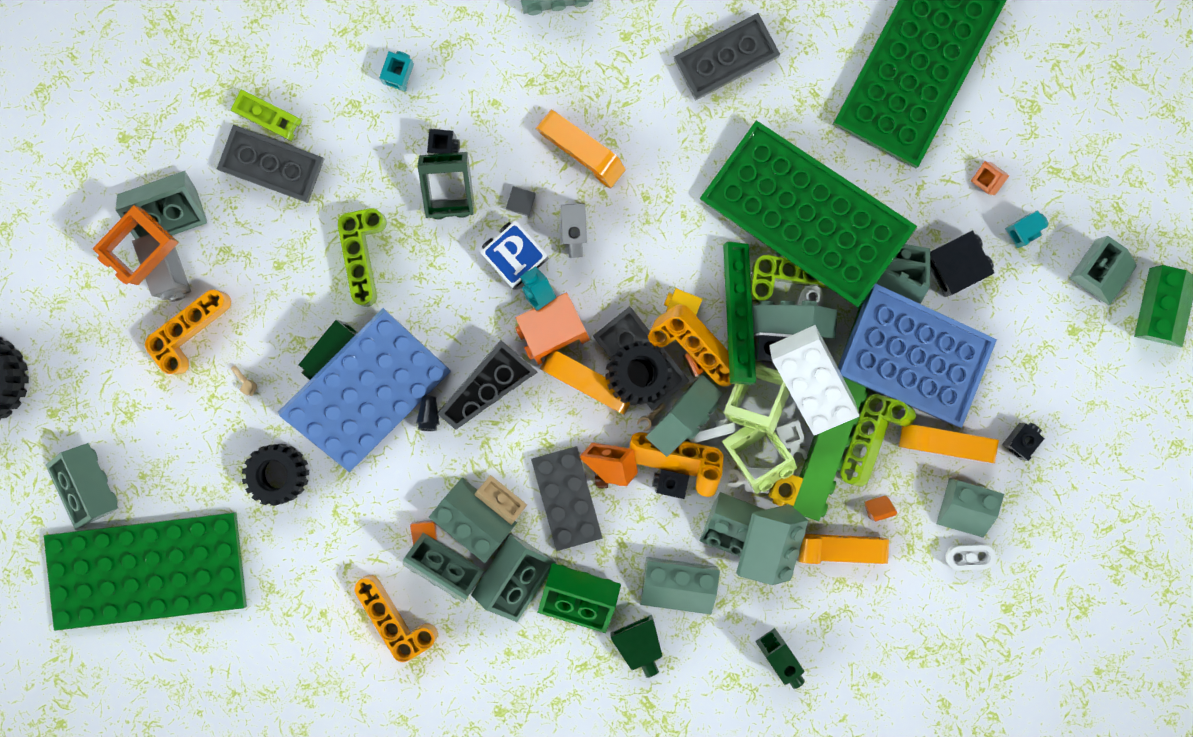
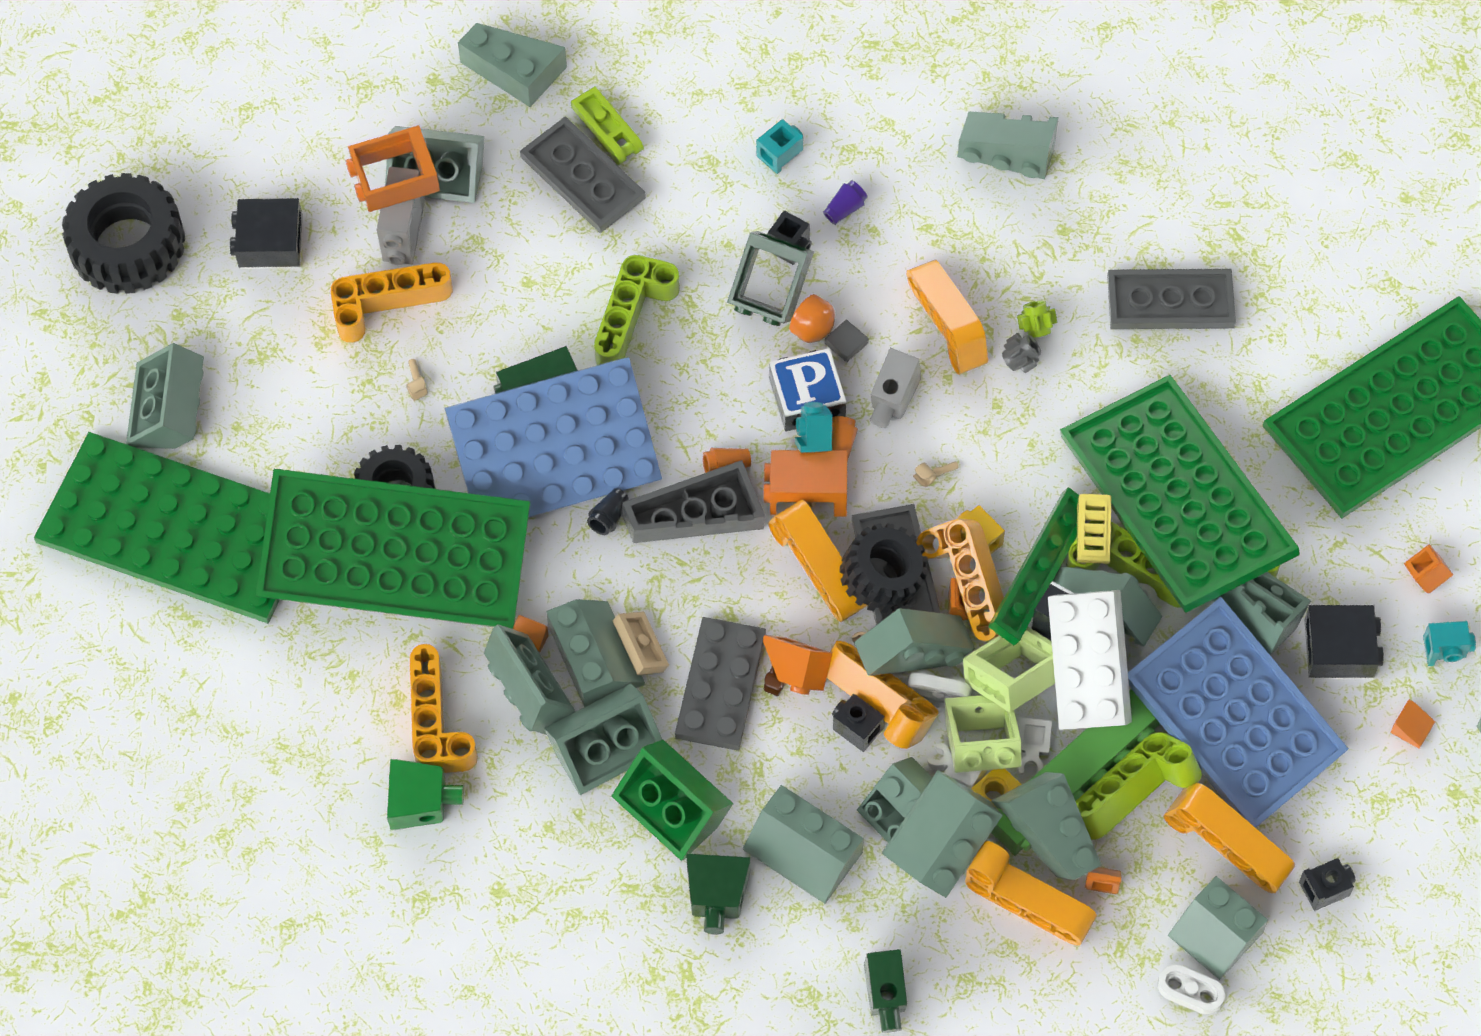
camera: 25 degrees right, 25 degrees down
(76, 324) = (267, 233): none -> black piece
(171, 98) = (512, 61): none -> sand green wedge
(299, 525) = (393, 549): none -> green plate
(413, 680) = (418, 794): none -> green torso
(465, 93) = (845, 202): none -> dark purple cone
(486, 336) = (722, 457): none -> orange cone
(492, 200) = (813, 319): none -> orange hair
(556, 278) = (843, 434): none -> orange cone
(625, 277) = (926, 475): none -> tan hand
(644, 120) = (1037, 319): none -> lime gear
(646, 152) = (1021, 353): none -> dark grey gear
(771, 267) = (1095, 508): none -> light yellow slope
(836, 501) = (1052, 824): none -> sand green wedge
(1027, 298) = (1413, 724): none -> orange slope

